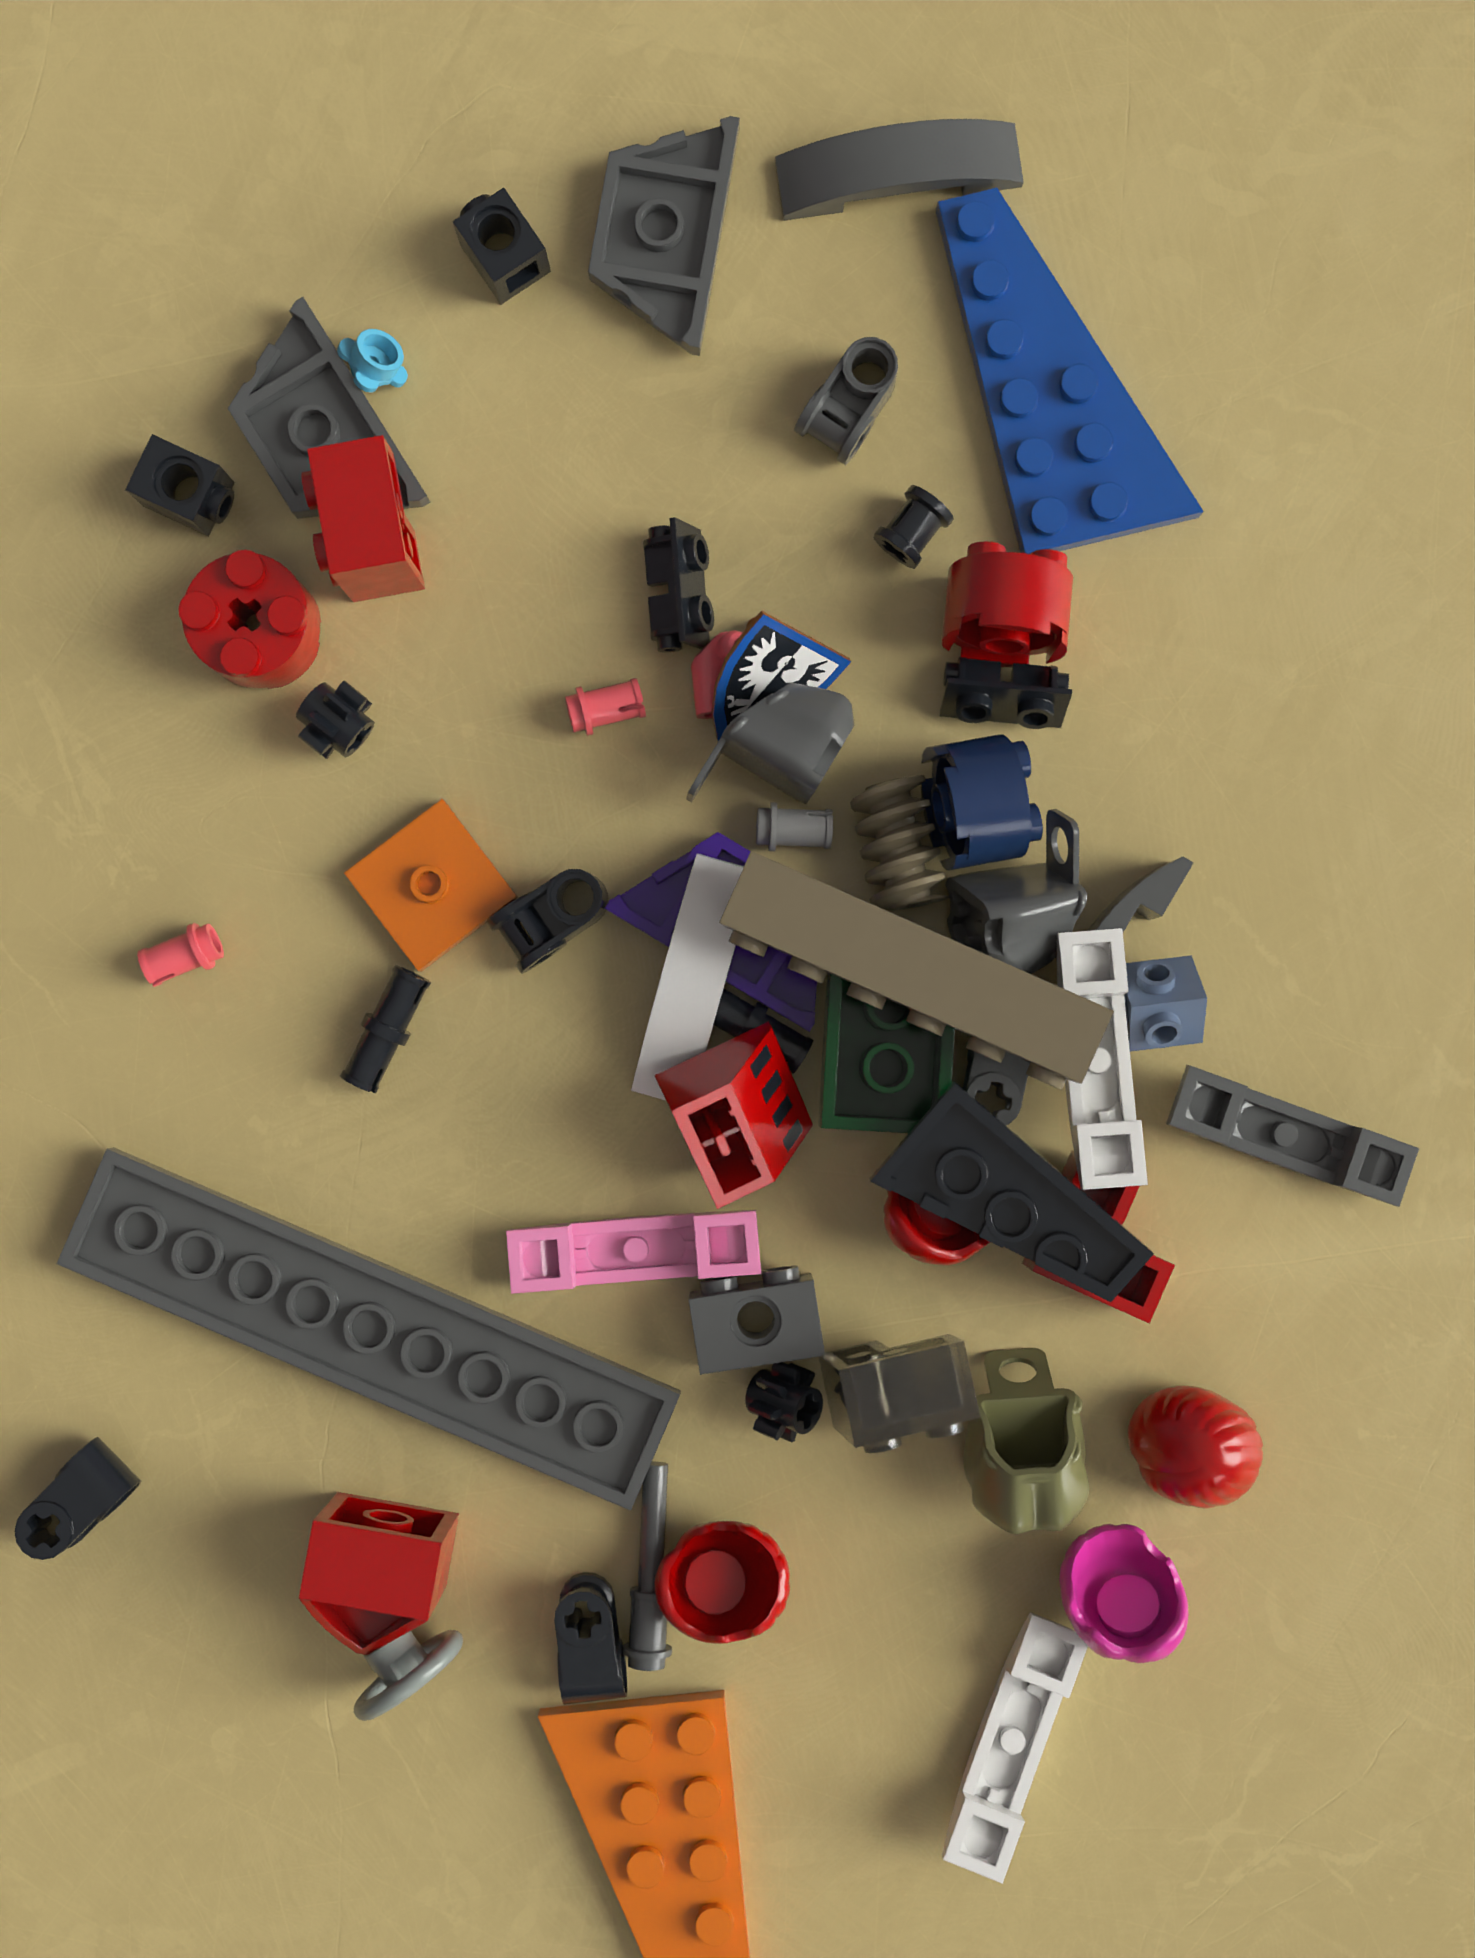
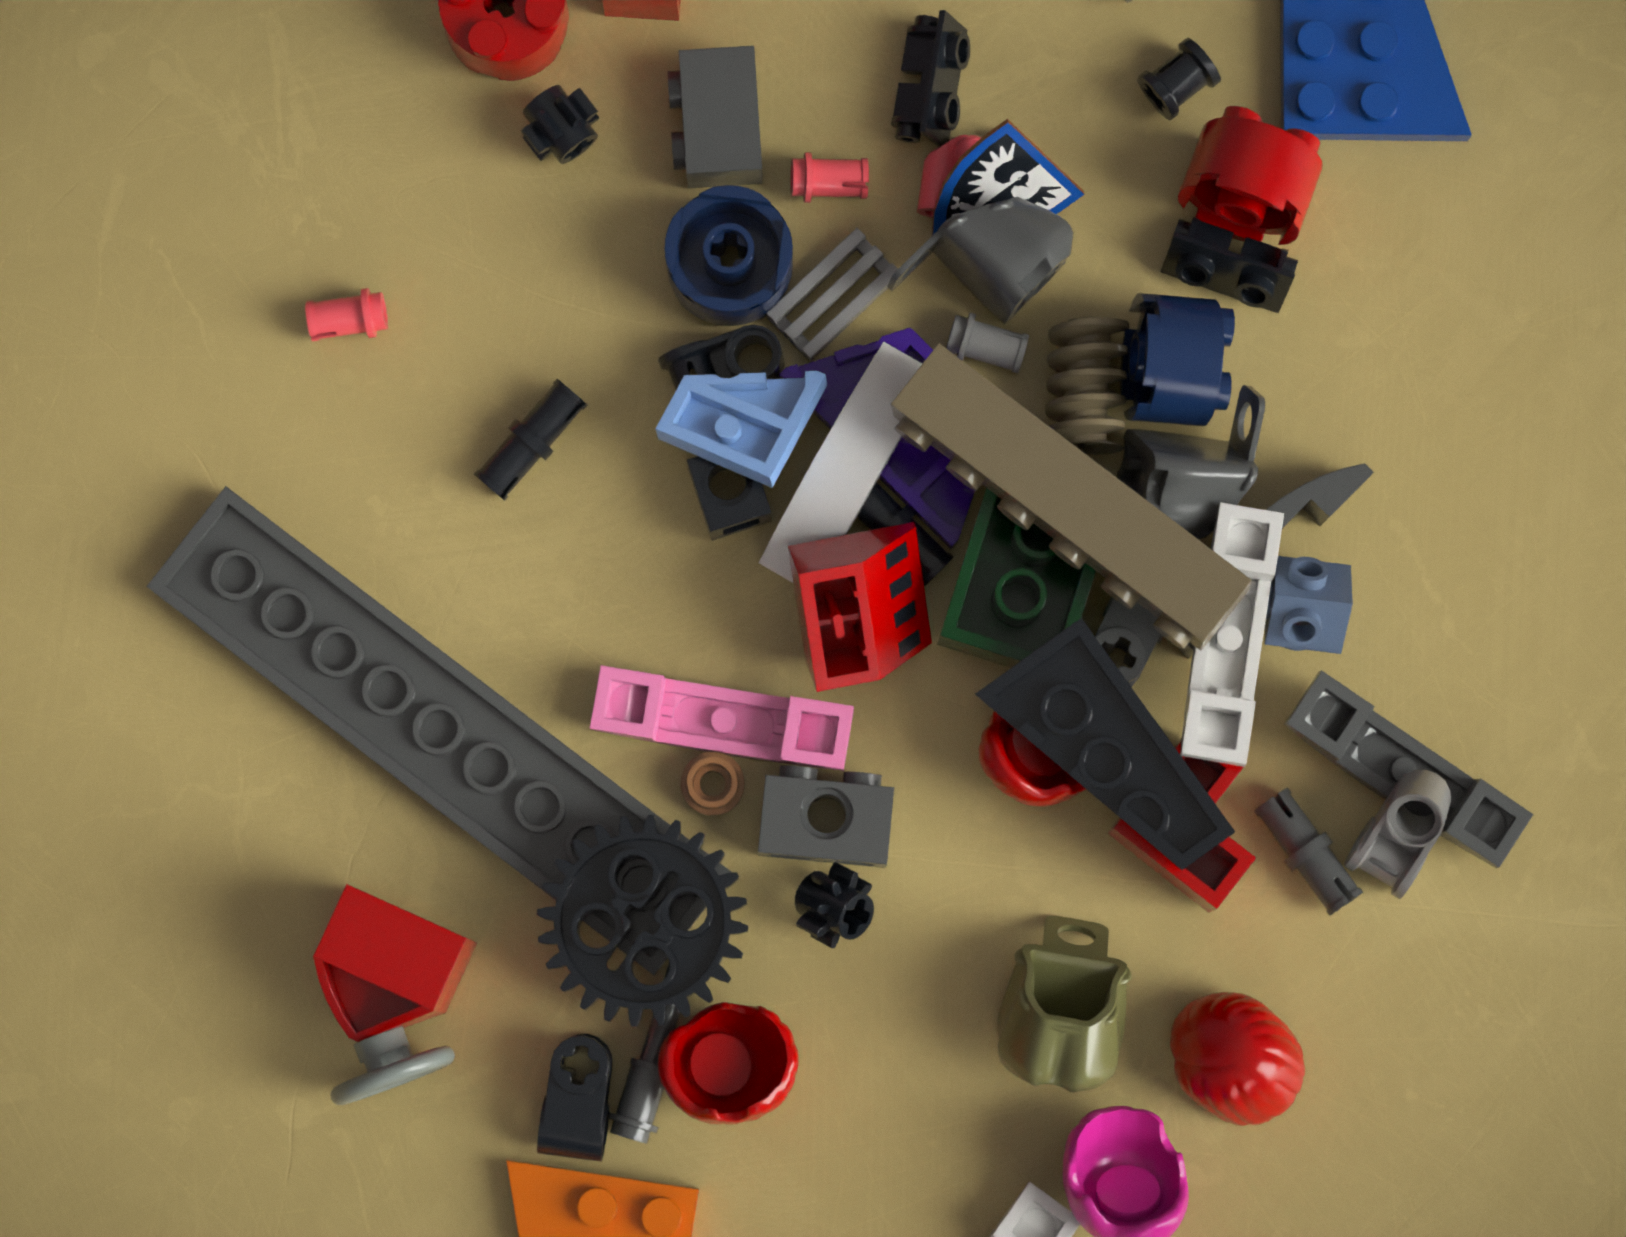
camera: 15 degrees right, 5 degrees down
(79, 1496) = (115, 819): black piece -> none
(431, 885) = (611, 310): orange plate -> none
(484, 674) = (718, 117): none -> dark grey brick
(500, 786) = (700, 235): none -> dark blue brick
(555, 1450) = (593, 887): none -> black gear
(581, 968) = (741, 420): none -> light blue wing
(605, 1047) = (732, 515): none -> black brick
(636, 1330) = (708, 763): none -> medium nougat plate
(665, 772) = (871, 258): none -> light grey tile
(899, 1391) = (951, 910): clear smoke brick -> none
(1215, 1235) = (1308, 851): none -> dark grey pin
(1297, 1205) = (1395, 839): none -> light grey piece

